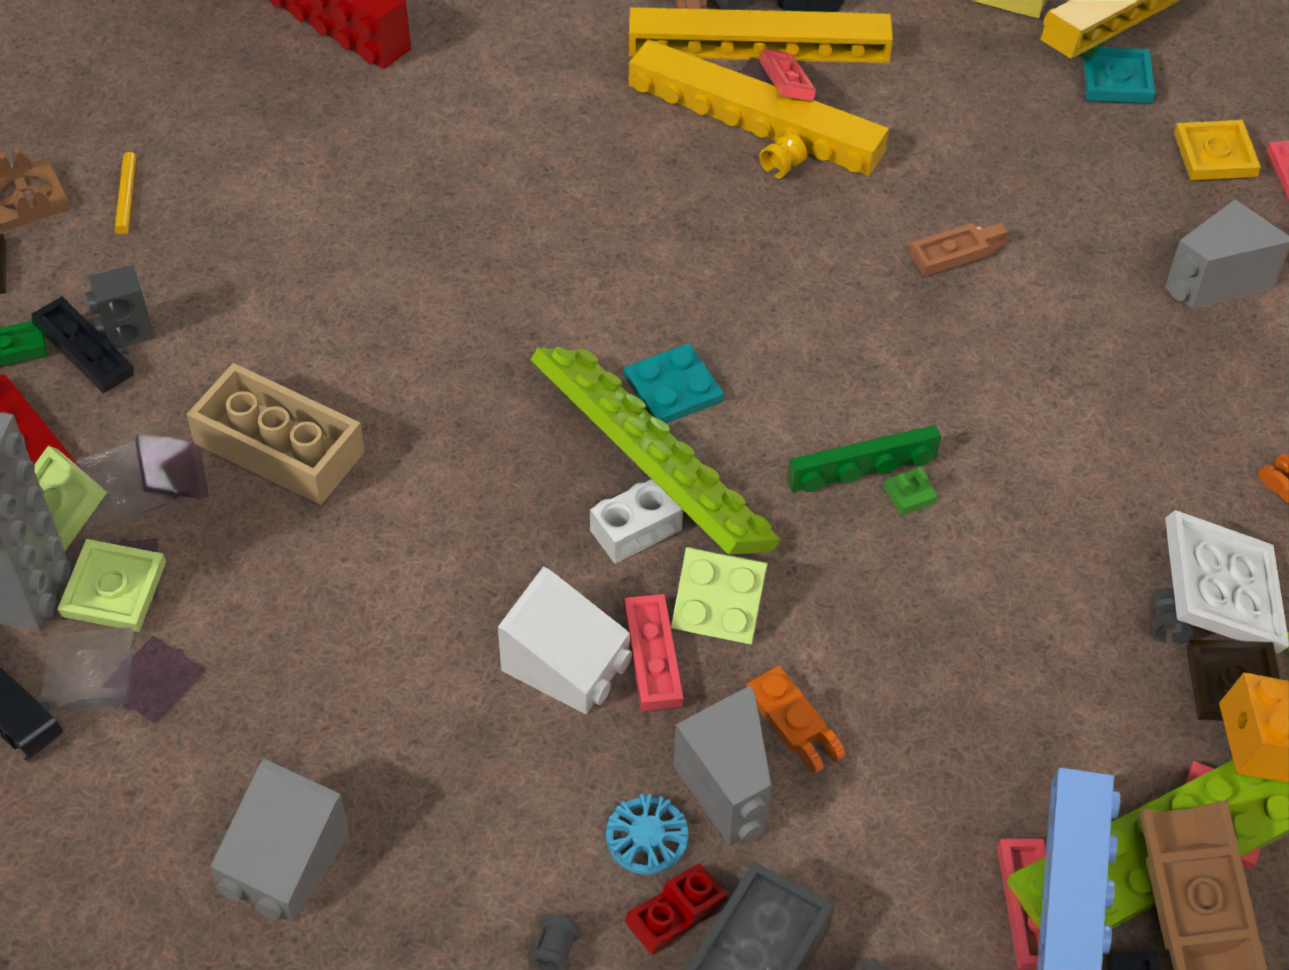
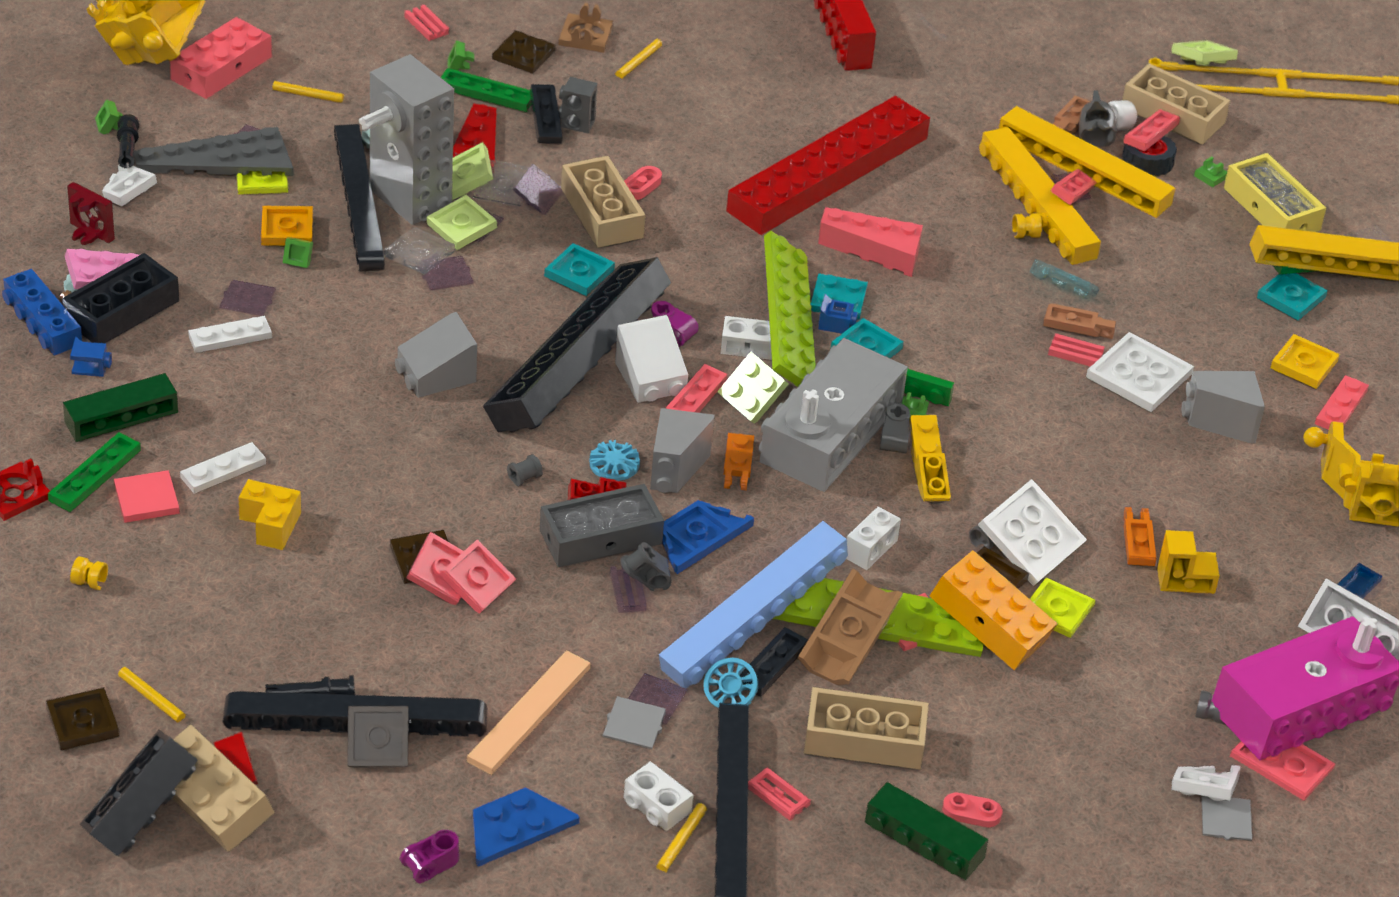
camera: 35 degrees right, 10 degrees down
(293, 373) = (644, 181): none -> coral plate
(331, 556) = (579, 269): none -> teal plate
(453, 697) = (576, 346): none -> black brick
(493, 214) = (827, 165): none -> red brick
(523, 560) = (682, 324): none -> magenta piece
(643, 279) = (872, 238): none -> coral wedge
(707, 415) = (836, 315): none -> blue window
(773, 433) = (871, 337): none -> teal plate
(854, 572) = (832, 414): none -> light grey piece
(861, 872) = (700, 531): none -> blue wing
(885, 201) = (1061, 278): none -> clear light blue hinge
(929, 537) = (895, 429): none -> dark grey piece
(988, 283) = (1075, 350): none -> coral tile
(1013, 564) = (928, 458): none -> yellow slope
(1067, 723) = (872, 538): none -> white brick
(1084, 272) = (1140, 371): none -> white plate

